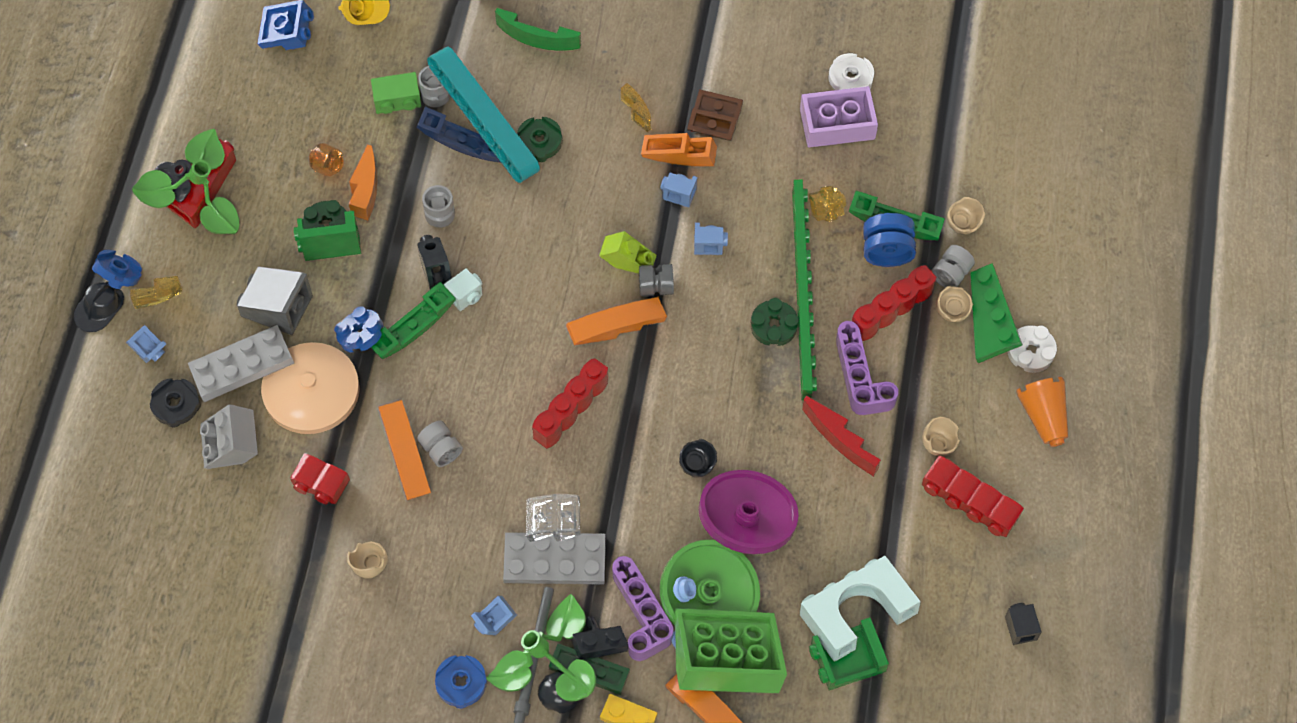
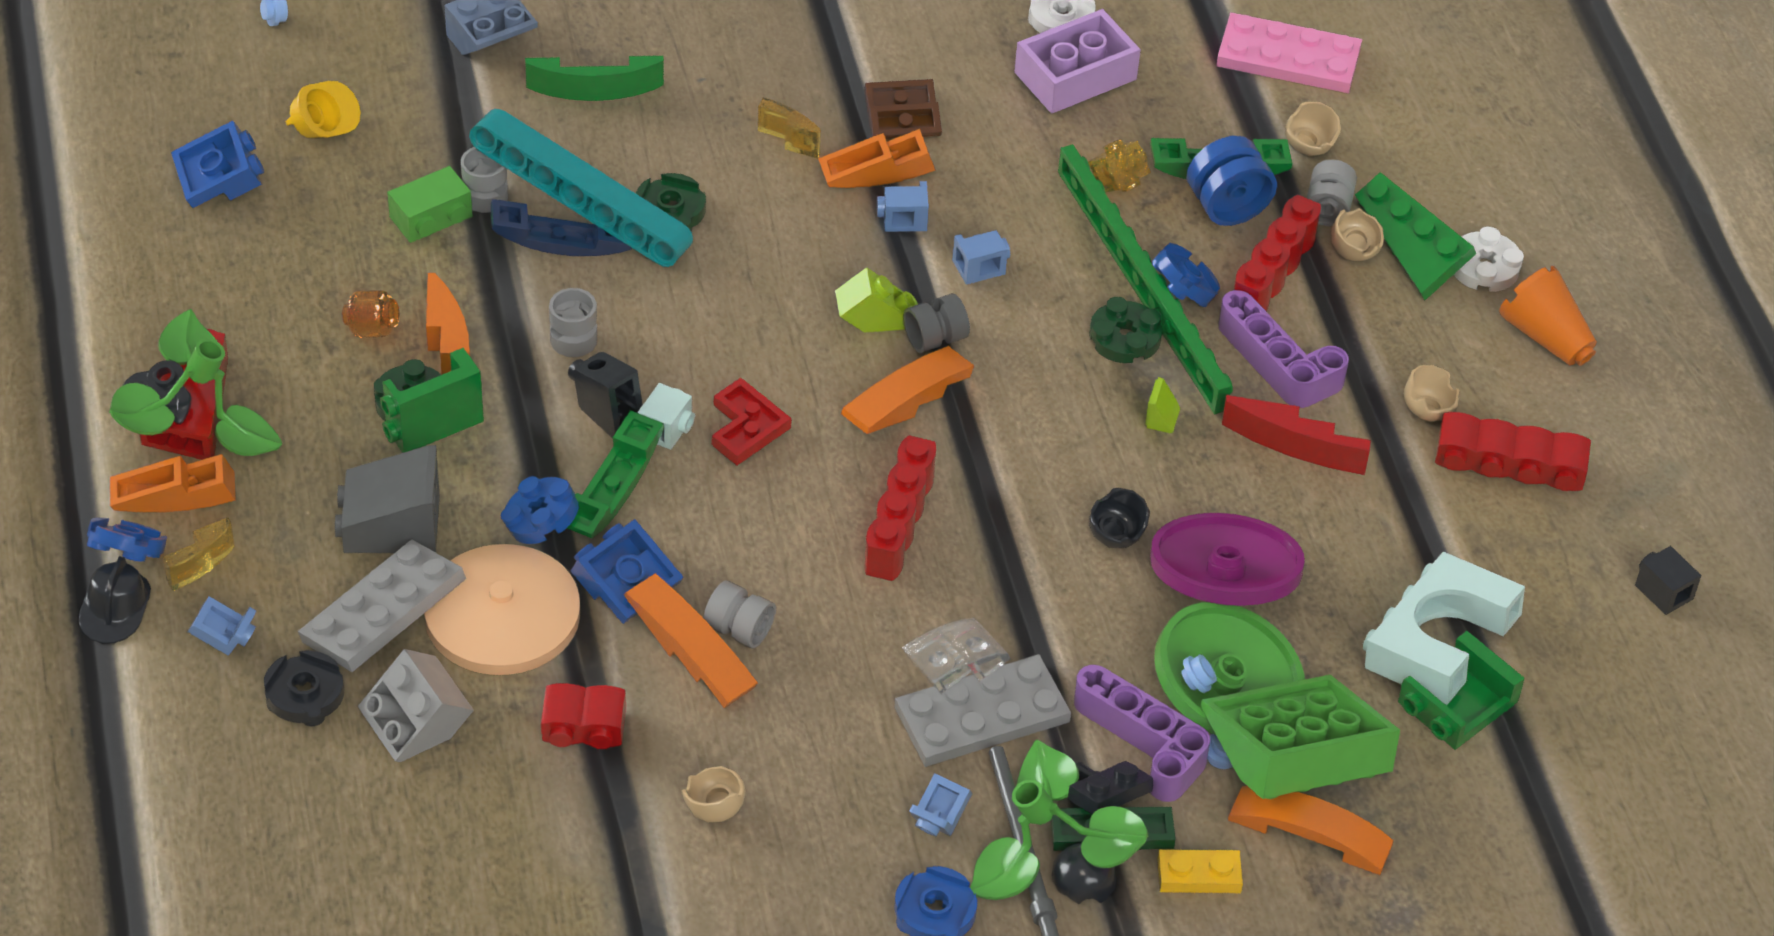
camera: 25 degrees left, 15 degrees down
(163, 240) = (174, 486): none -> orange slope
(388, 386) = (620, 564): none -> blue plate
(514, 314) = (753, 422): none -> red plate
(767, 387) = (1162, 408): none -> lime slope
(820, 292) = (1186, 277): none -> blue plate
(984, 150) = (1289, 52): none -> bright pink plate

